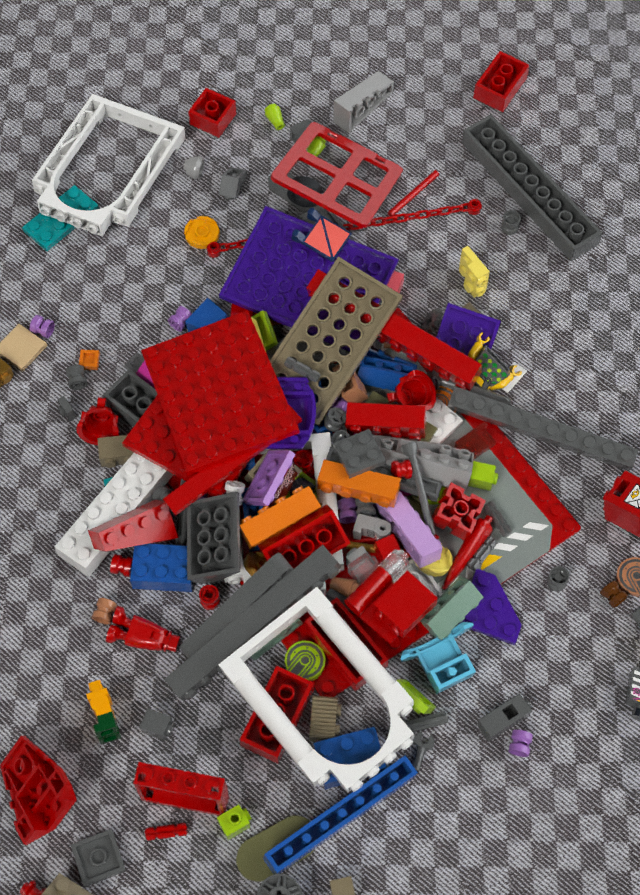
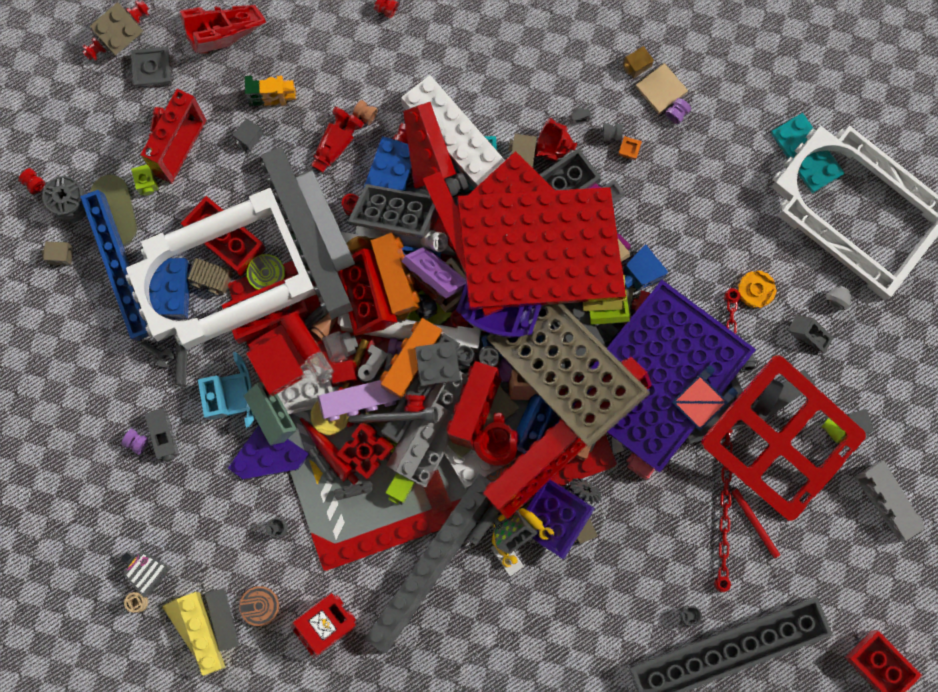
camera: 105 degrees right, 15 degrees up
(178, 320) = (654, 242): medium lavender wheel -> none
(212, 112) = (906, 331): red brick -> none
(274, 115) = (891, 399): lime cone -> none
(302, 369) = (542, 331): dark grey axle -> none
(421, 703) = (201, 358): lime plate -> none
(474, 271) = (626, 551): light yellow plate -> none
(613, 594) = (246, 576): reddish brown wheel -> none

